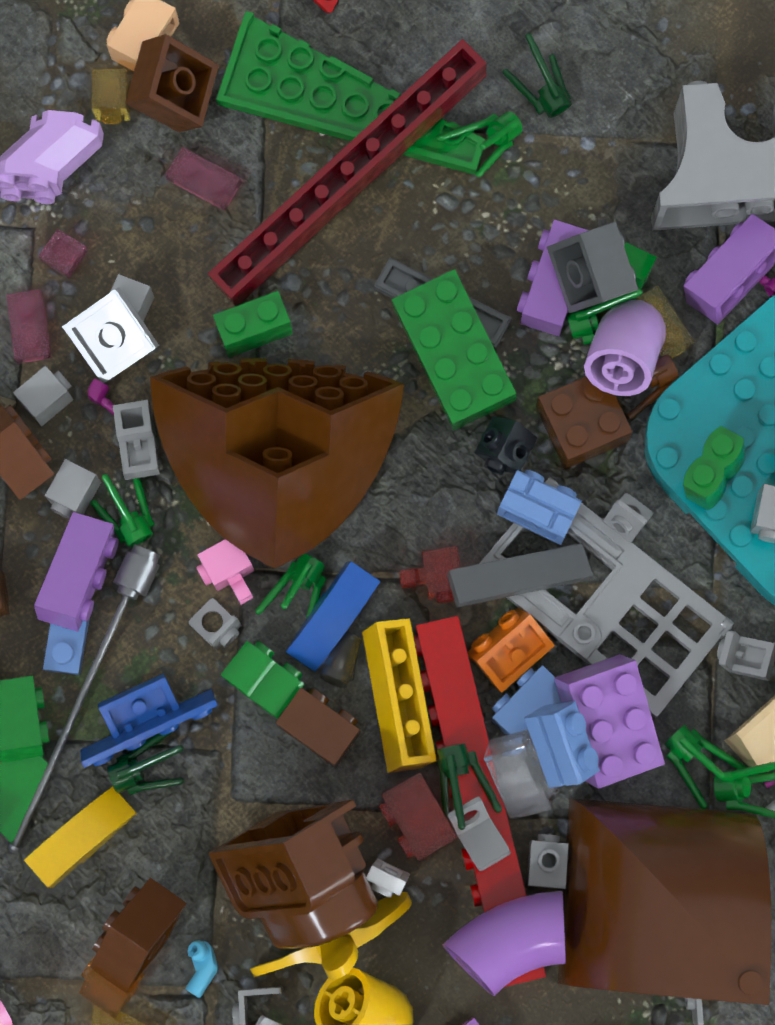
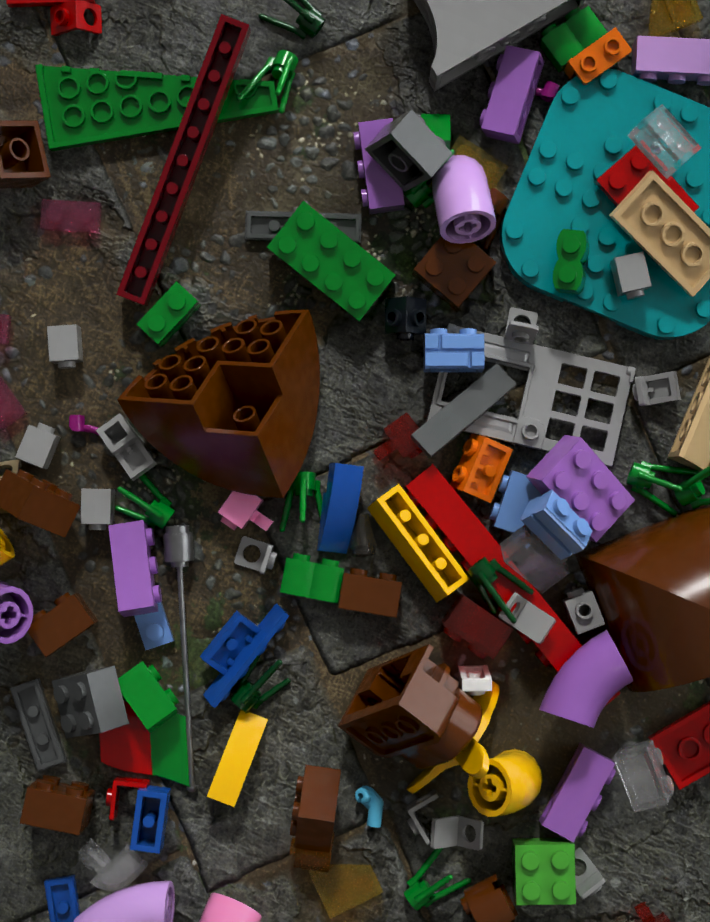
camera: 30 degrees left, 10 degrees up
(110, 335) = (66, 376): tile -> none

